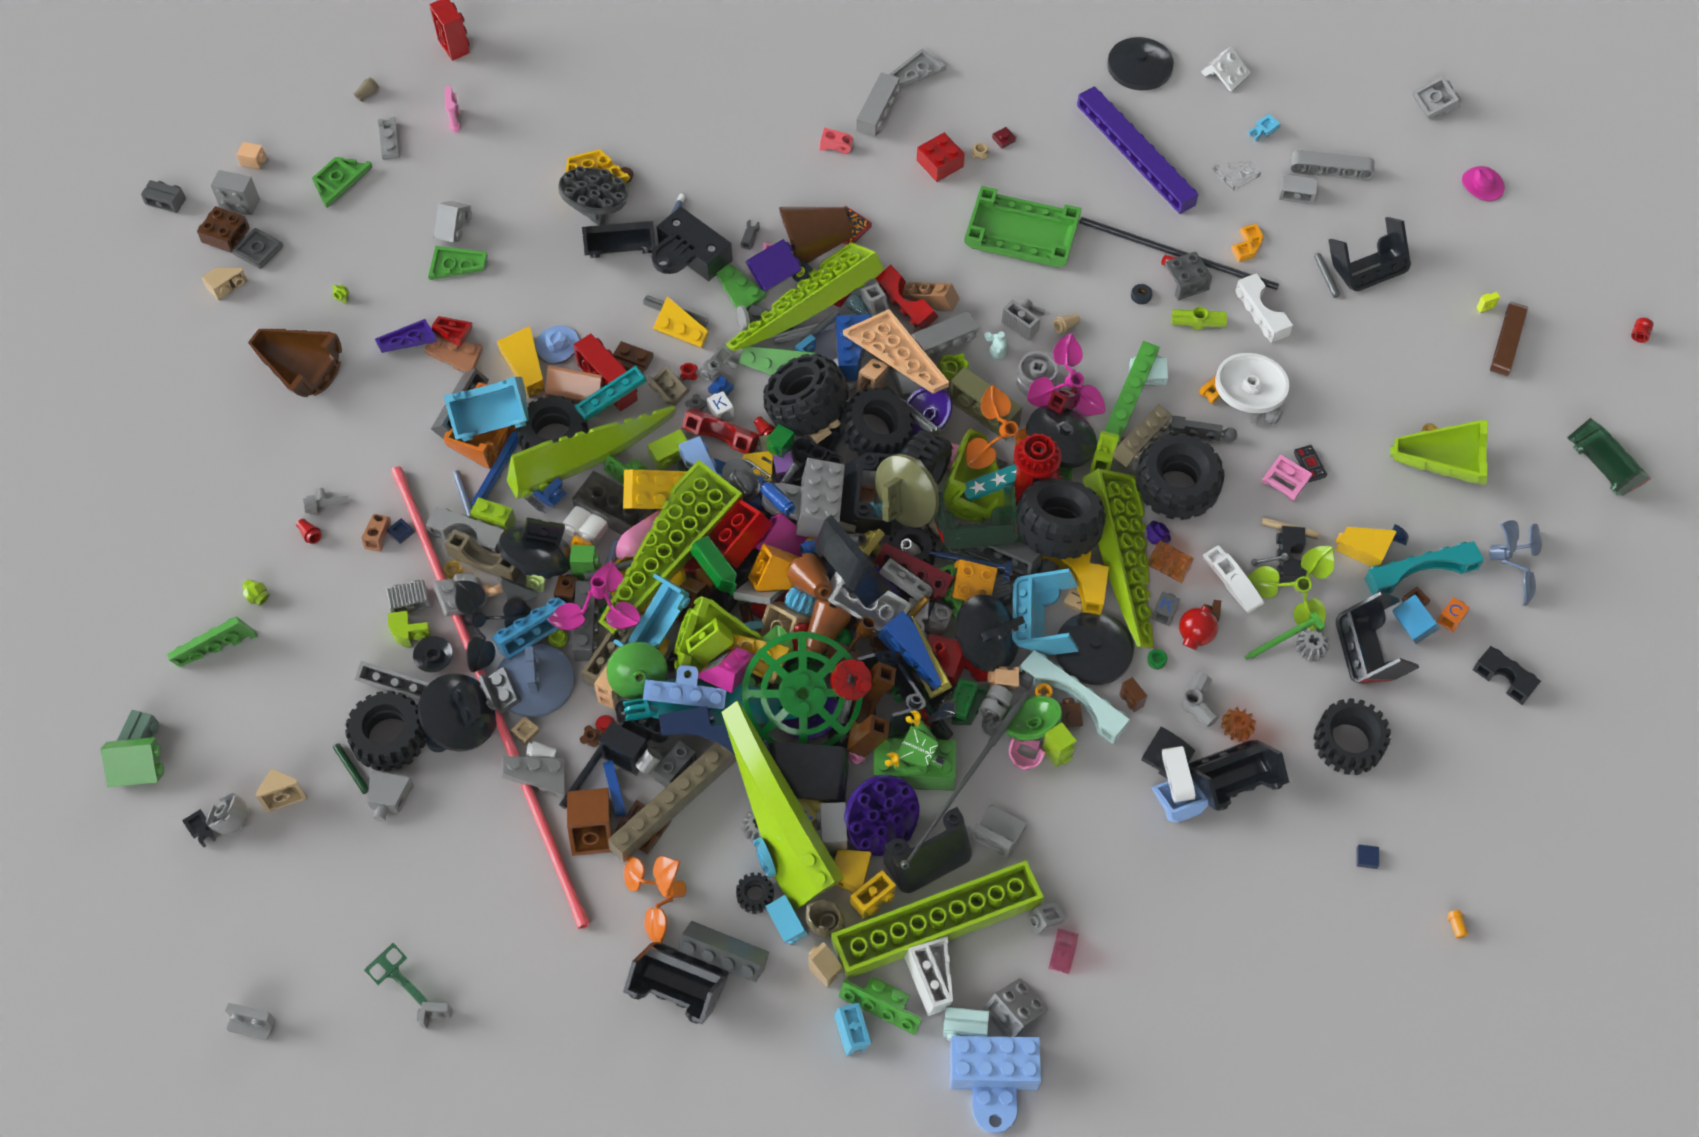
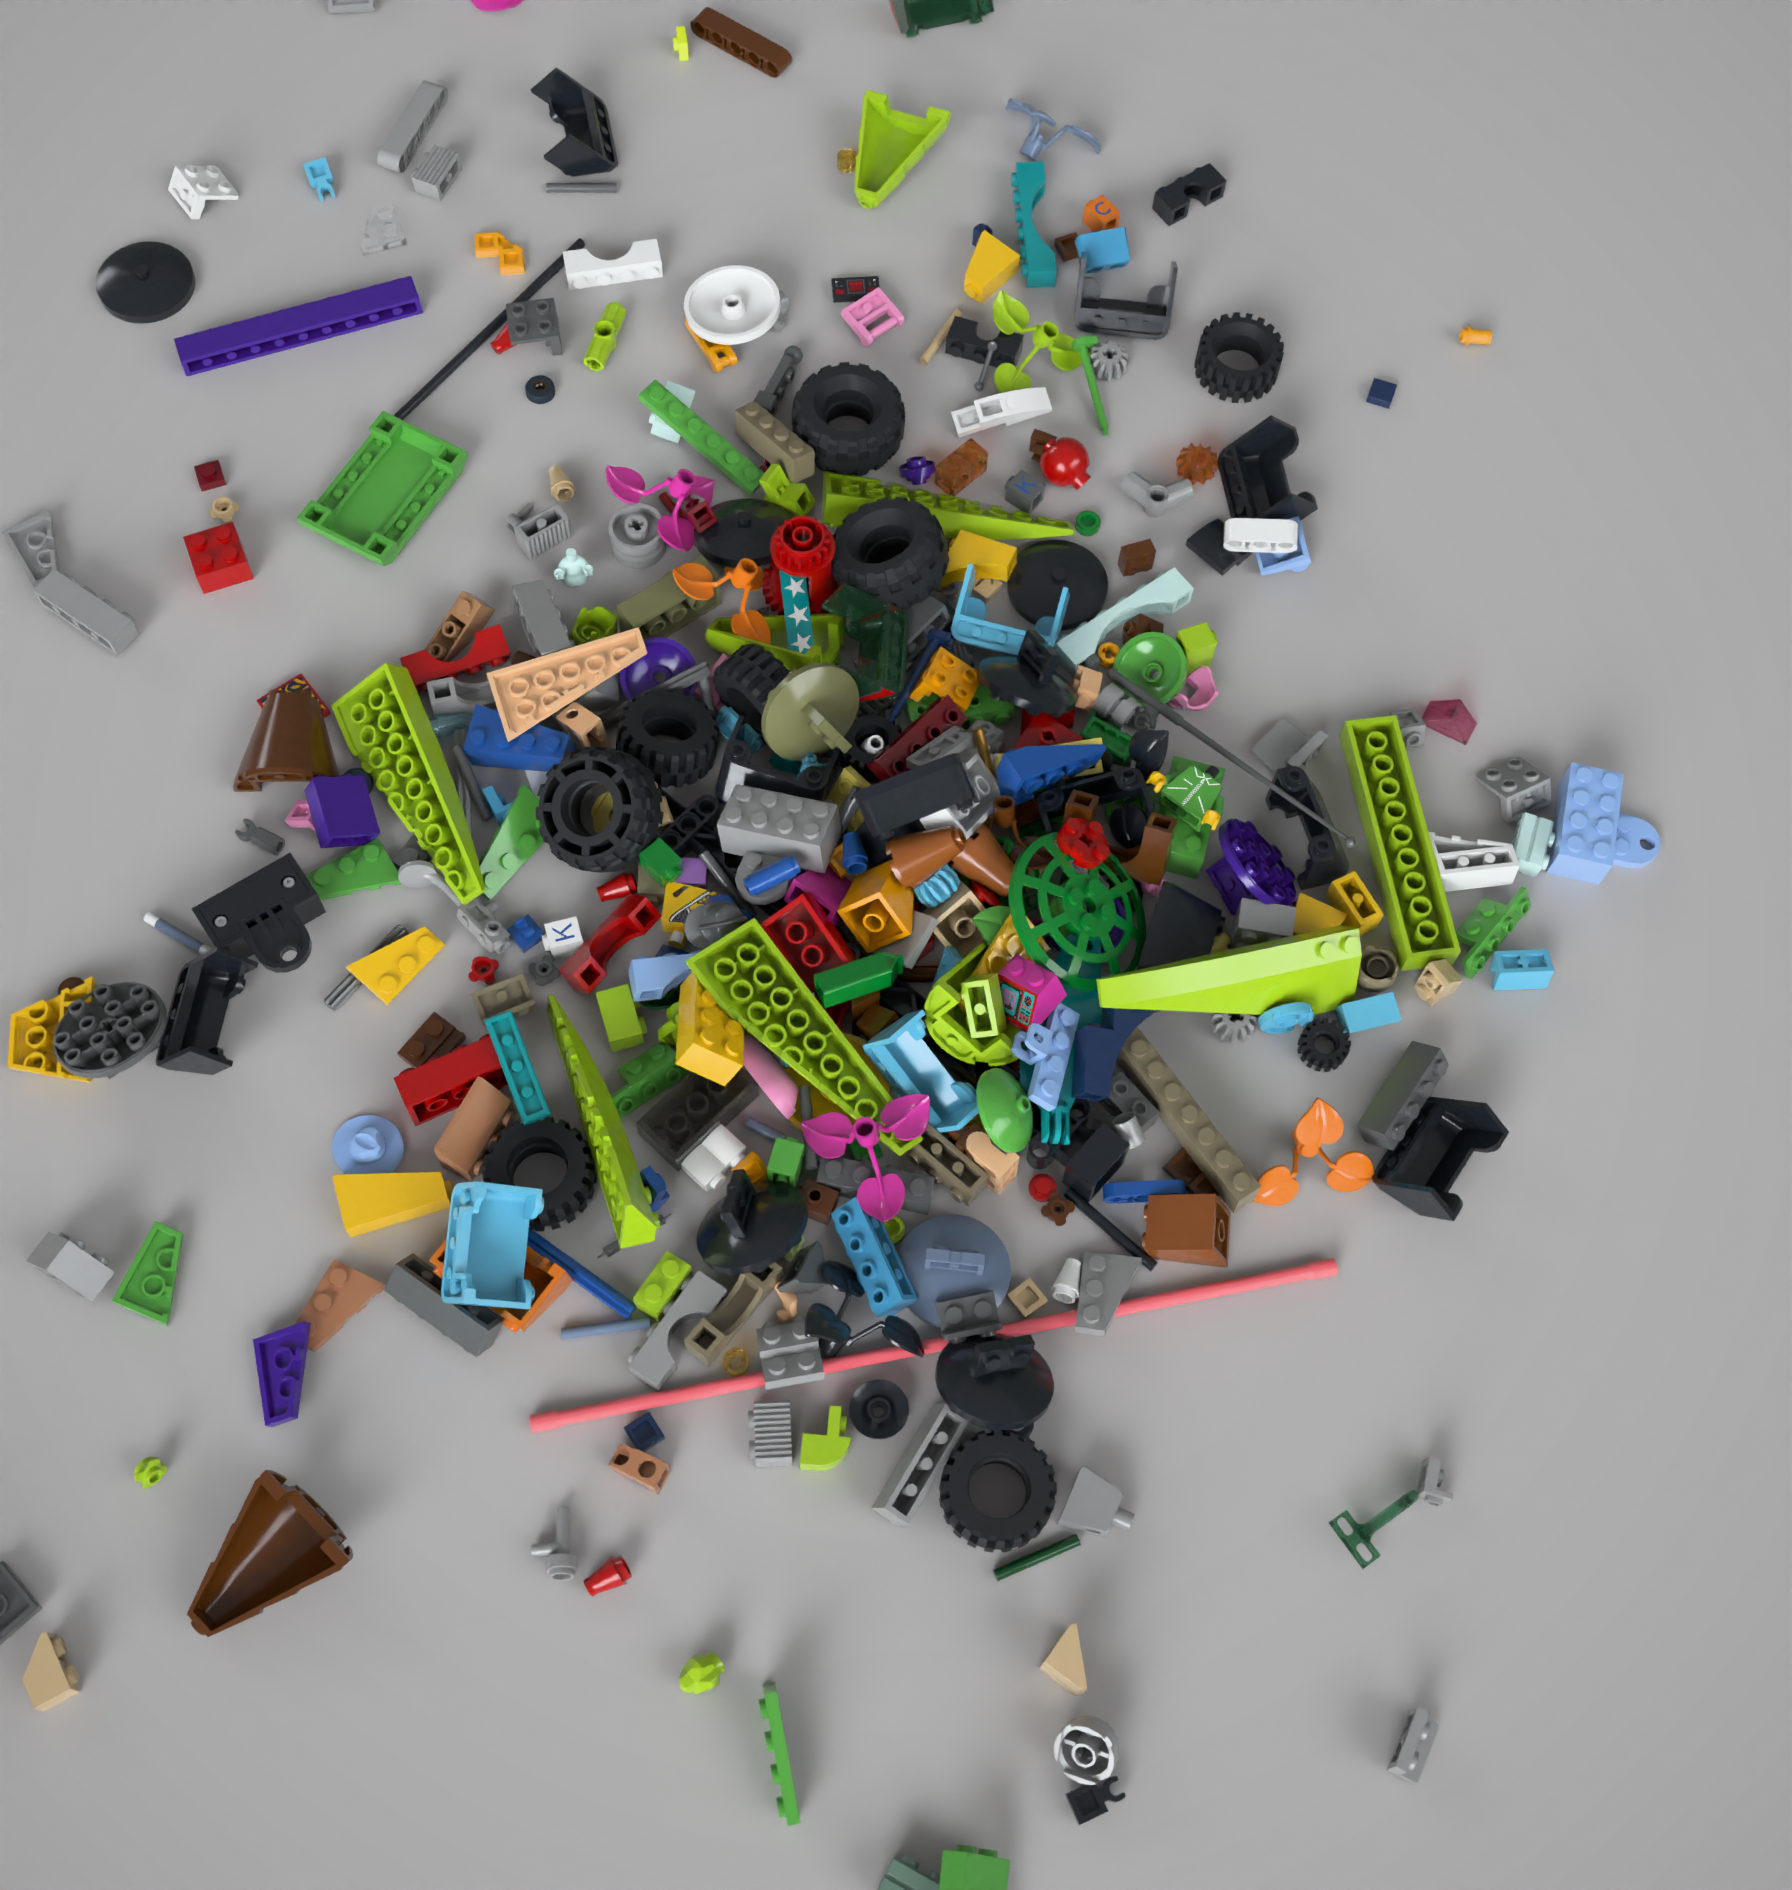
camera: 80 degrees left, 5 degrees up
(452, 329) = (291, 1298): red wing -> none
(835, 141) = (130, 685): coral leg -> none

